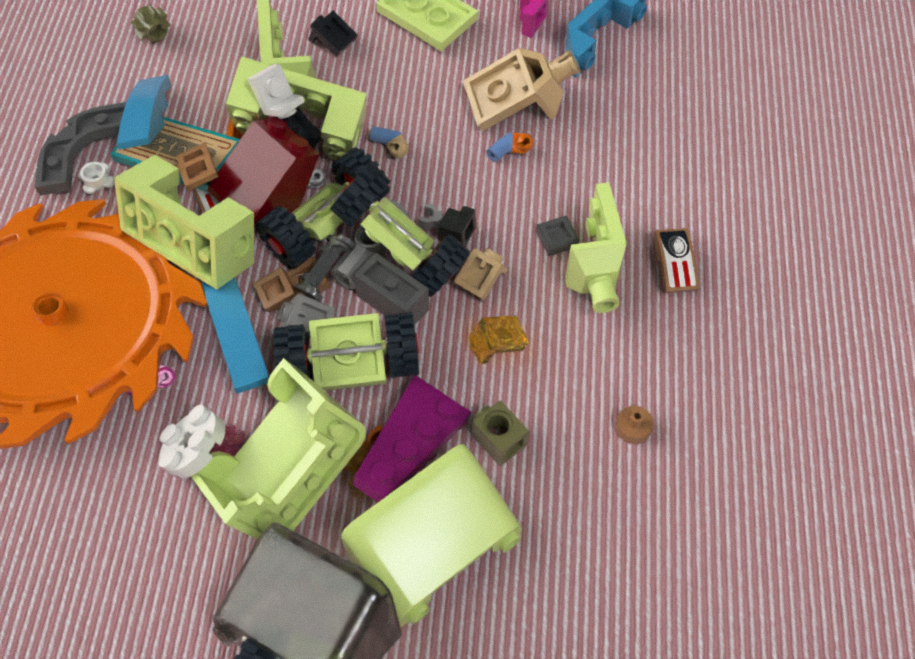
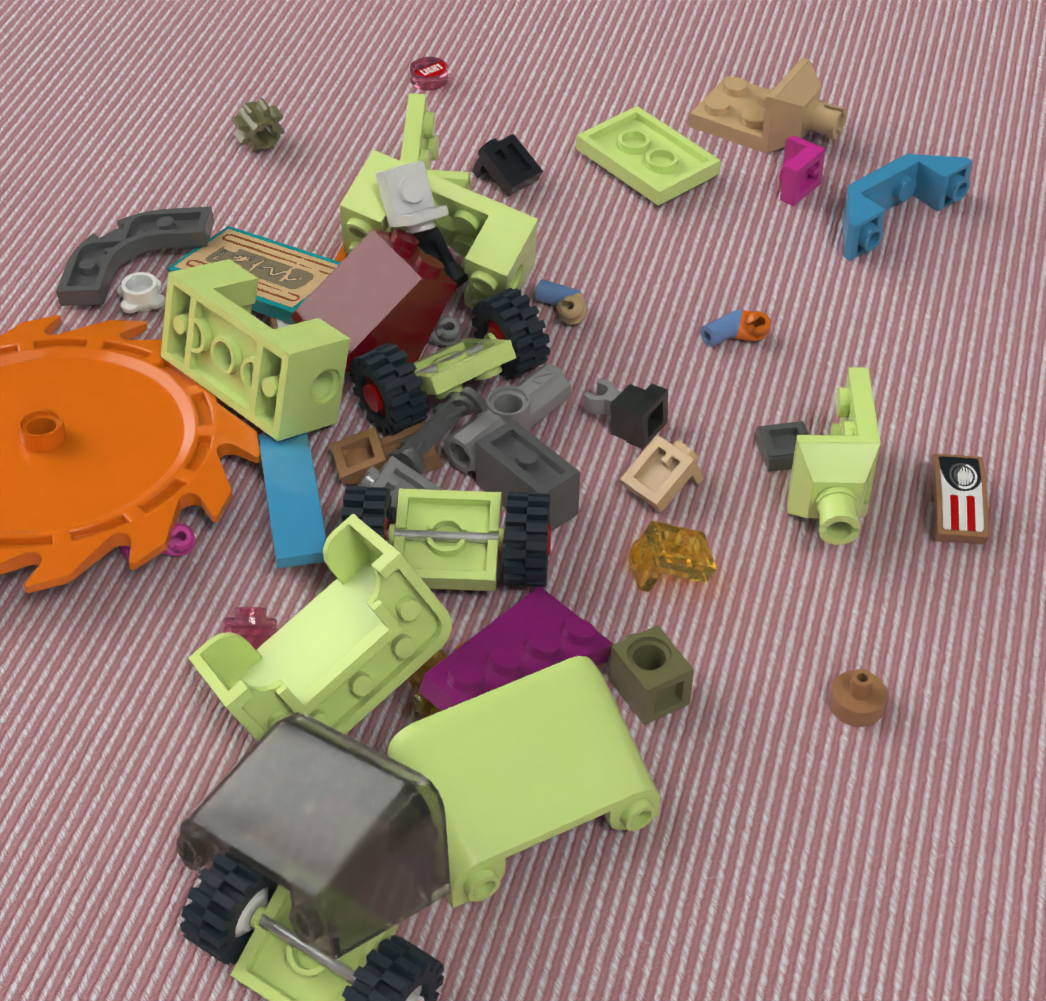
camera: 10 degrees right, 15 degrees down
(143, 112) = (225, 219): dark azure slope -> none
(189, 442) = (196, 621): white plate -> none
(197, 166) = (283, 283): medium nougat slope -> none
(397, 232) = (502, 345): plate -> none
(517, 83) = (761, 245): tan plate -> none

